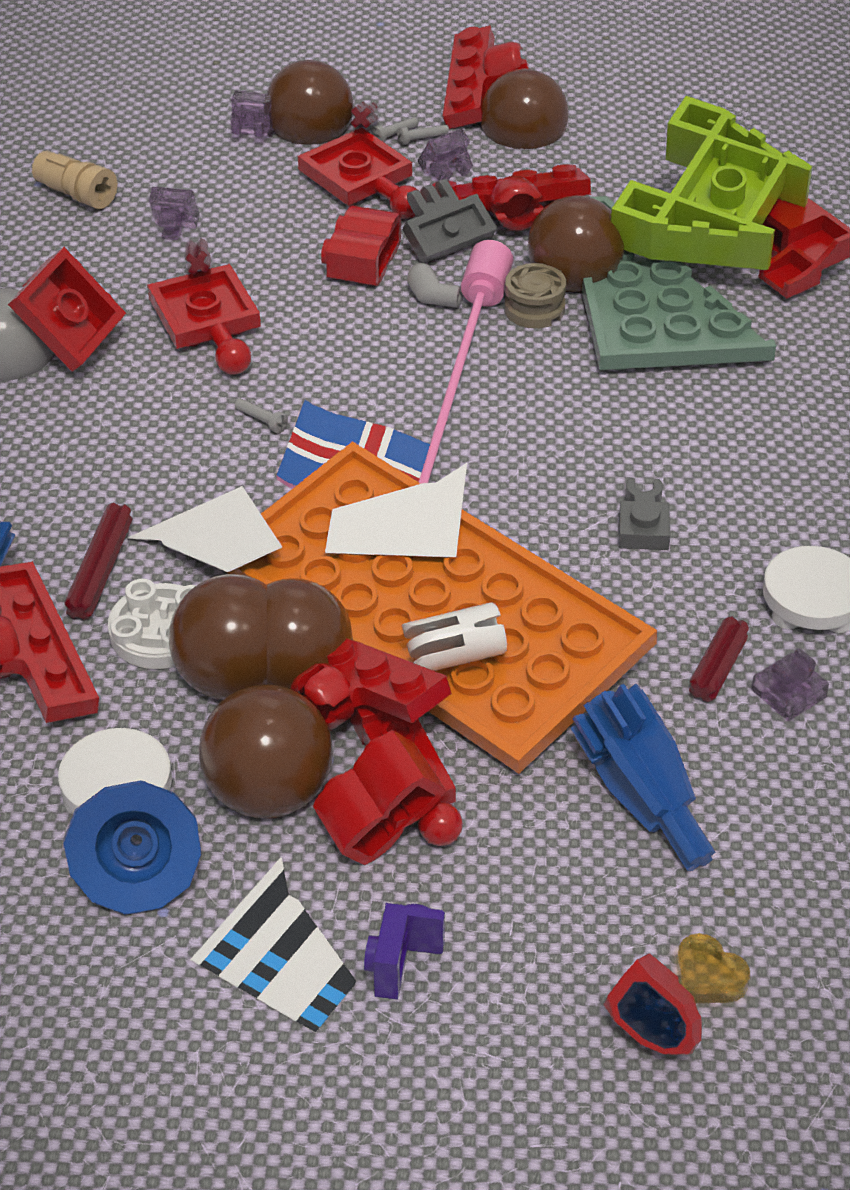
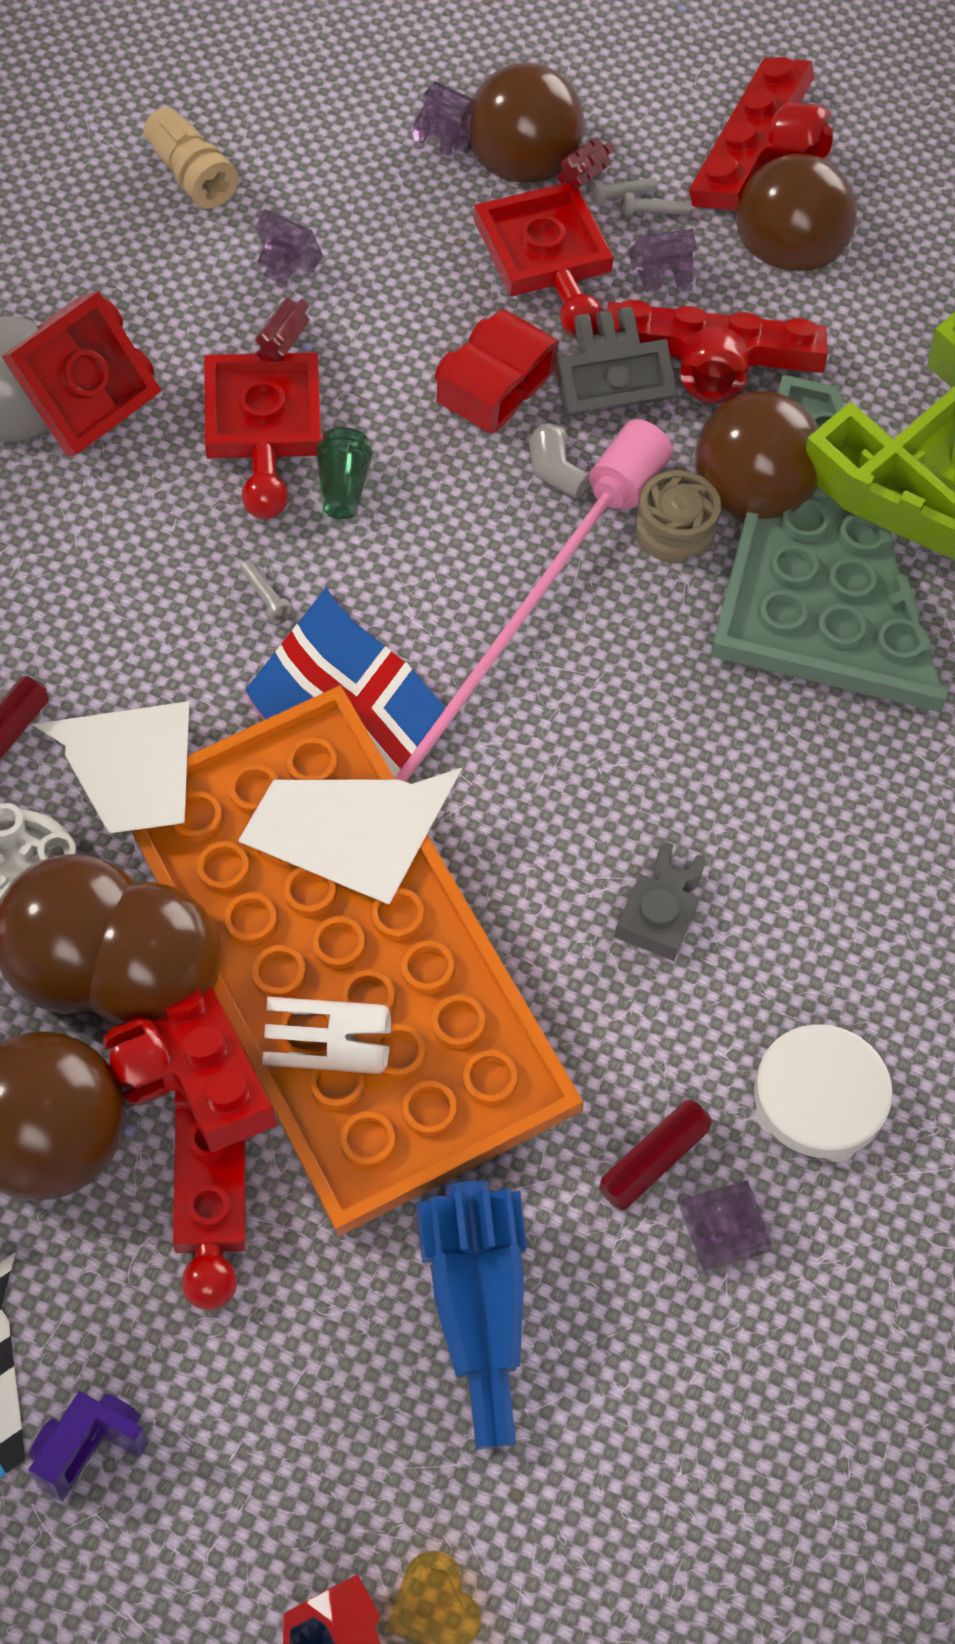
camera: 15 degrees right, 15 degrees up
(282, 326) = (342, 469): none -> clear green cone
(378, 797) = (140, 1229): red brick -> none

